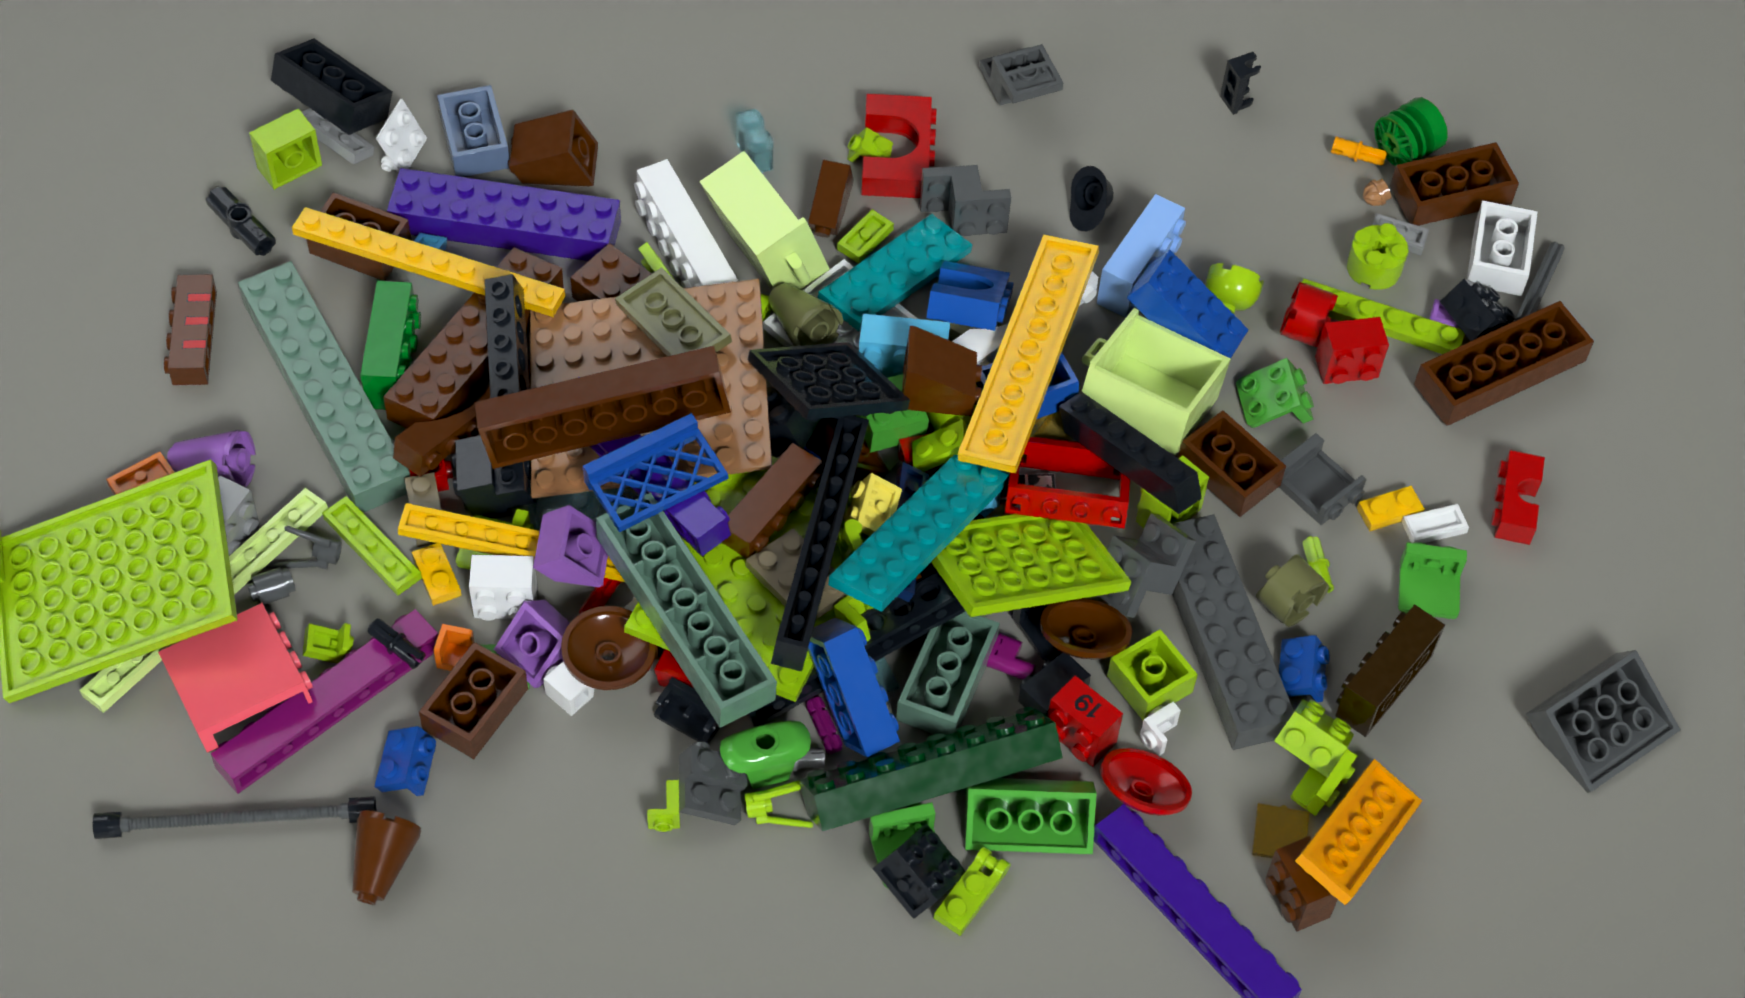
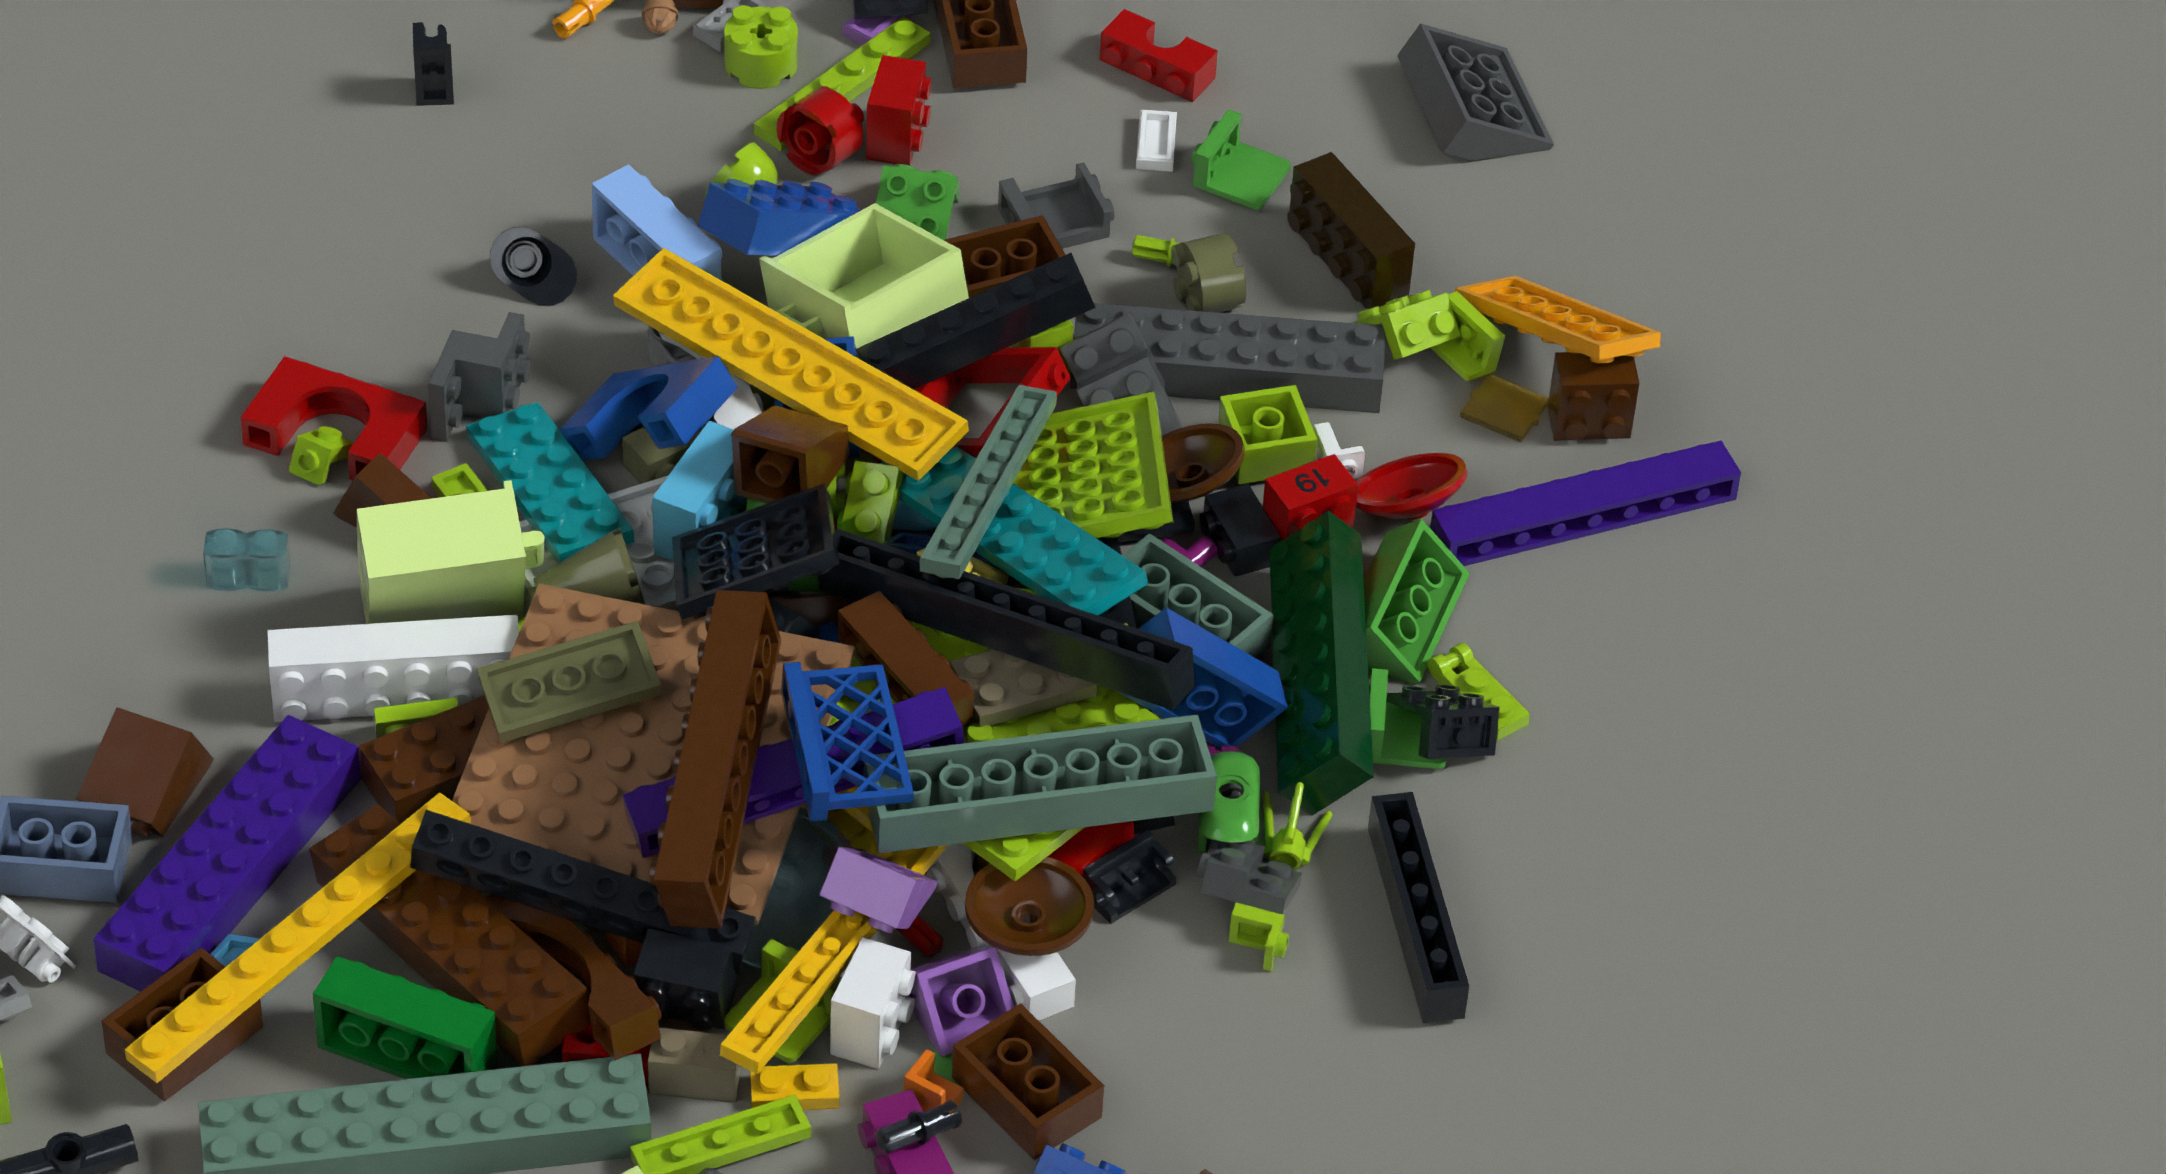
camera: 70 degrees left, 10 degrees down
(726, 900) = (1418, 908): none -> black brick
(949, 491) = (988, 482): none -> sand green plate
(1021, 75) = (305, 248): dark grey bracket -> none
(1304, 666) = (1297, 301): blue bracket -> none
(1389, 508) = (1117, 168): yellow plate -> none

